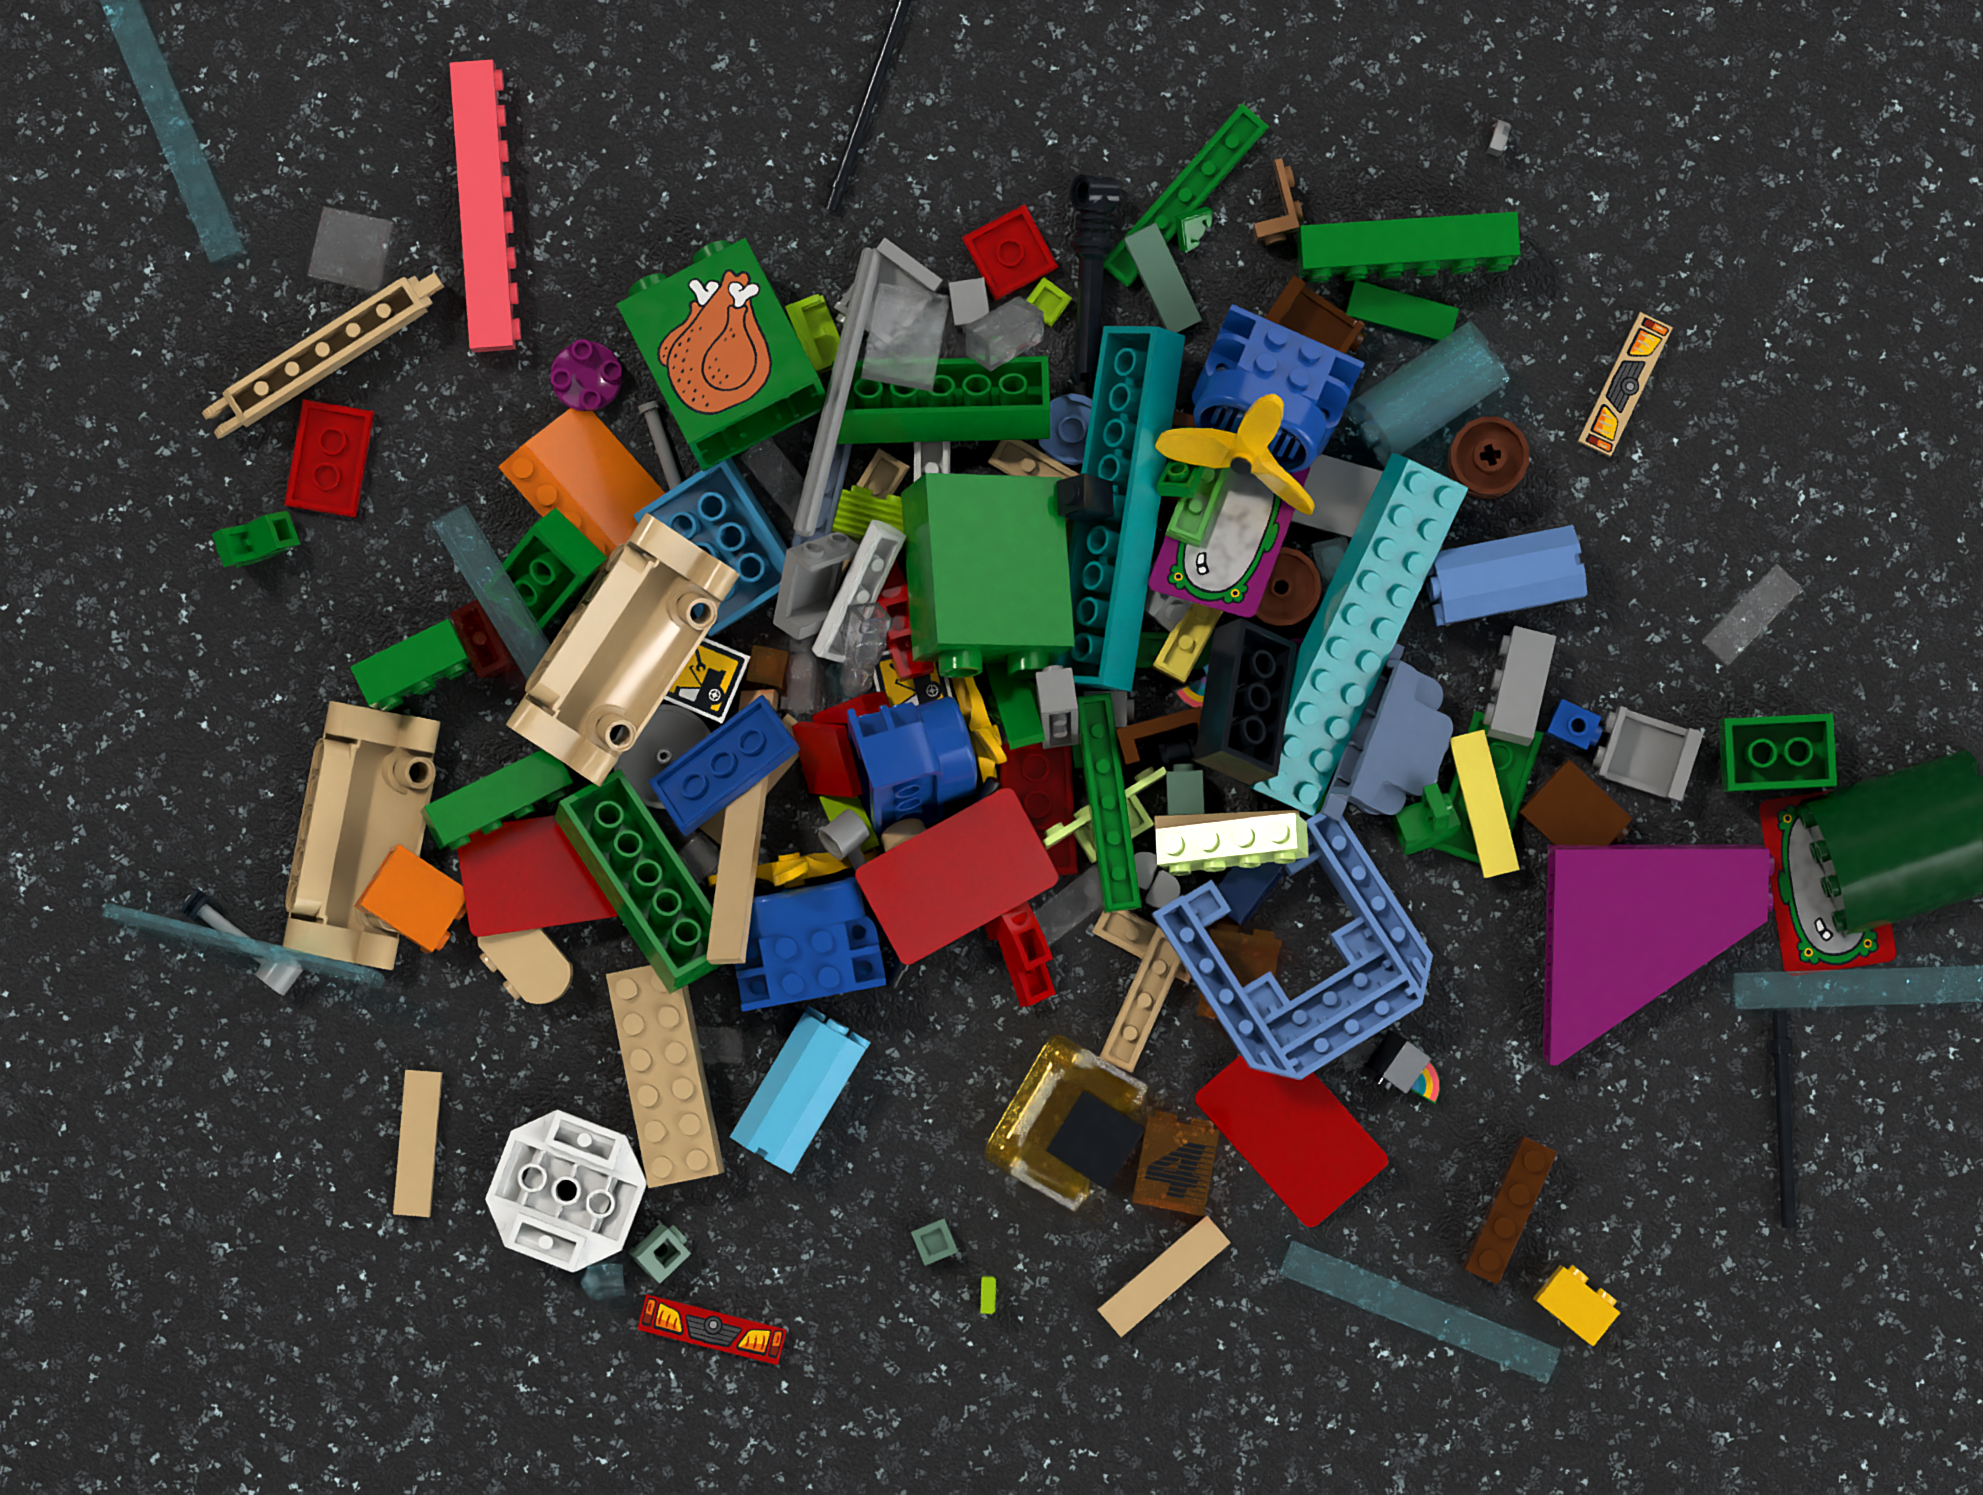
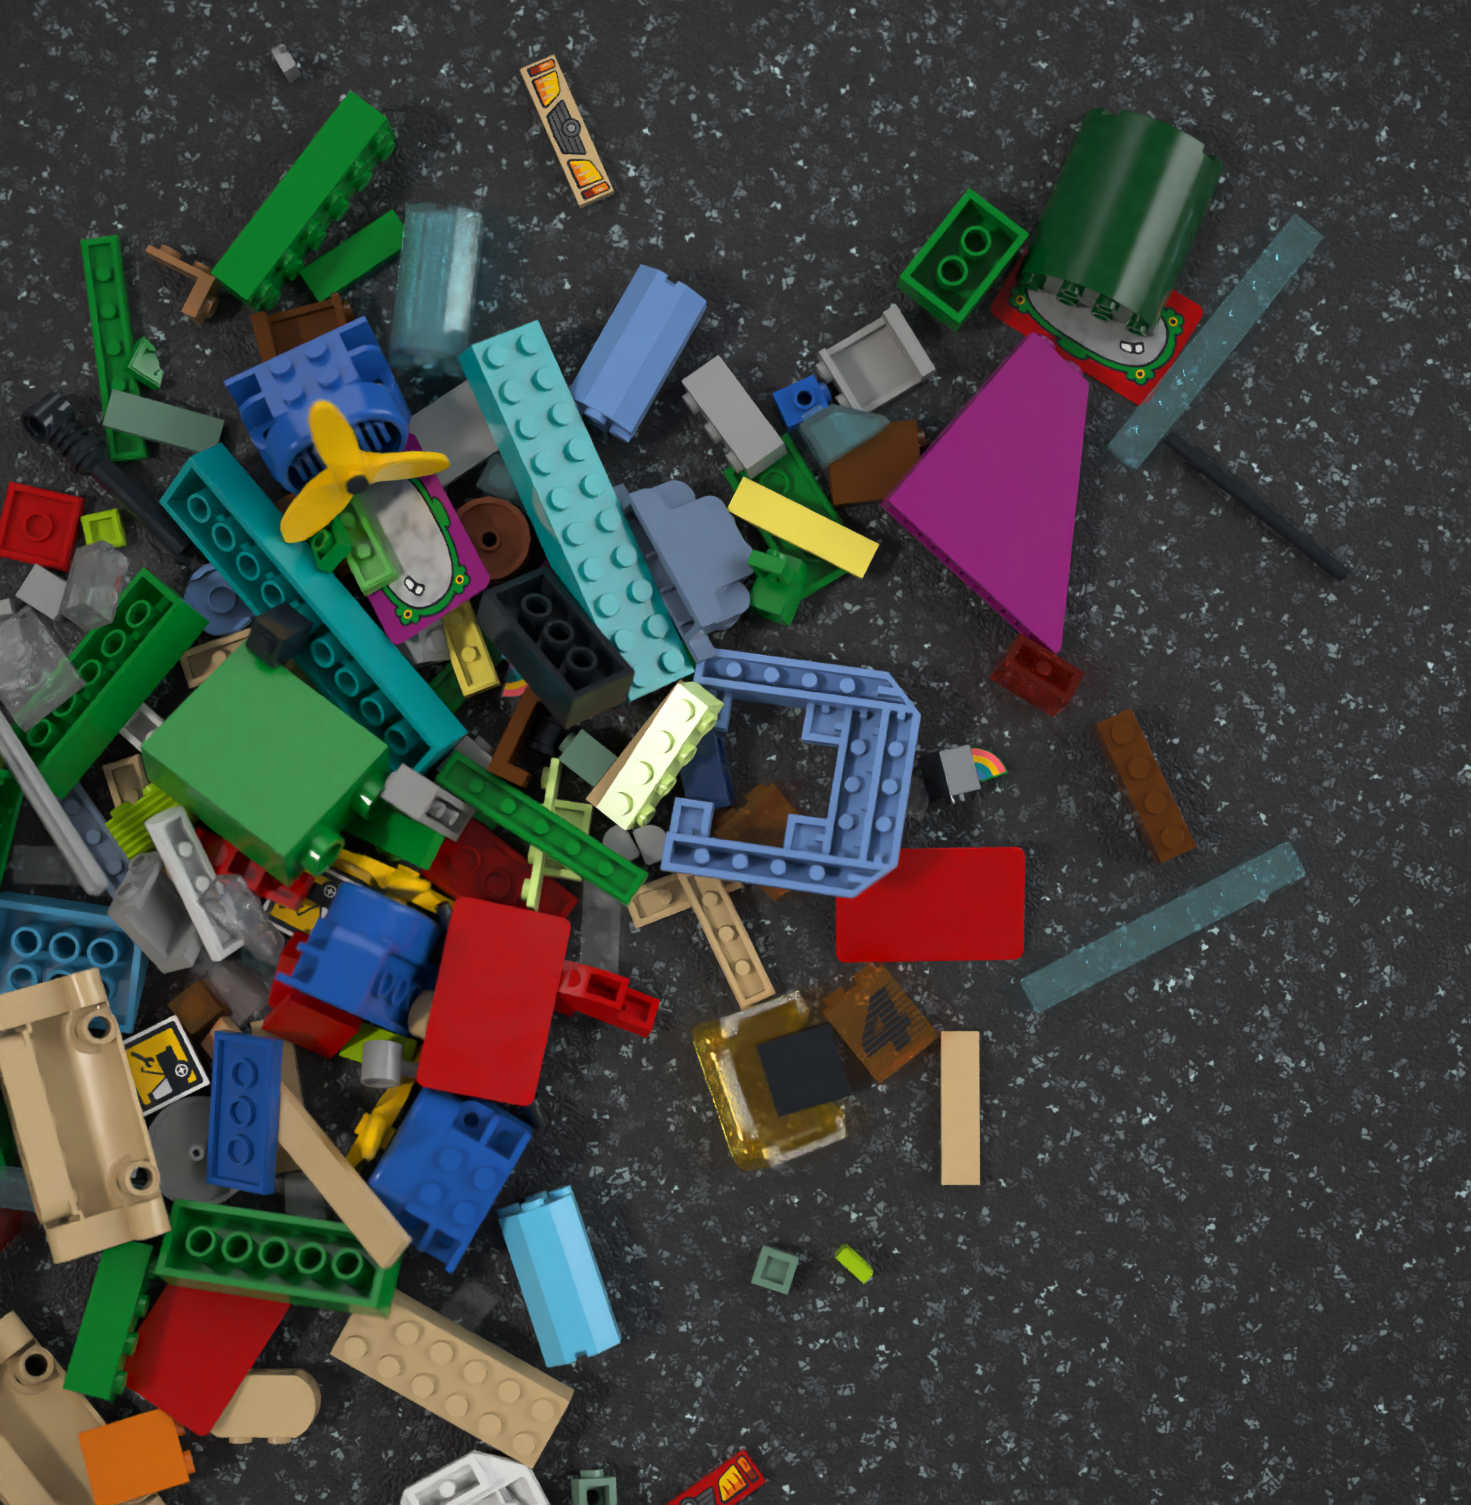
camera: 50 degrees left, 0 degrees up
(1490, 436) = (525, 265): copper wheel -> none
(1522, 1064) = (1036, 675): none -> clear red brick
(1575, 770) = (838, 430): none -> clear light blue slope
(1576, 1304) = (1264, 797): yellow brick -> none
(1751, 615) = (835, 189): clear tile -> none

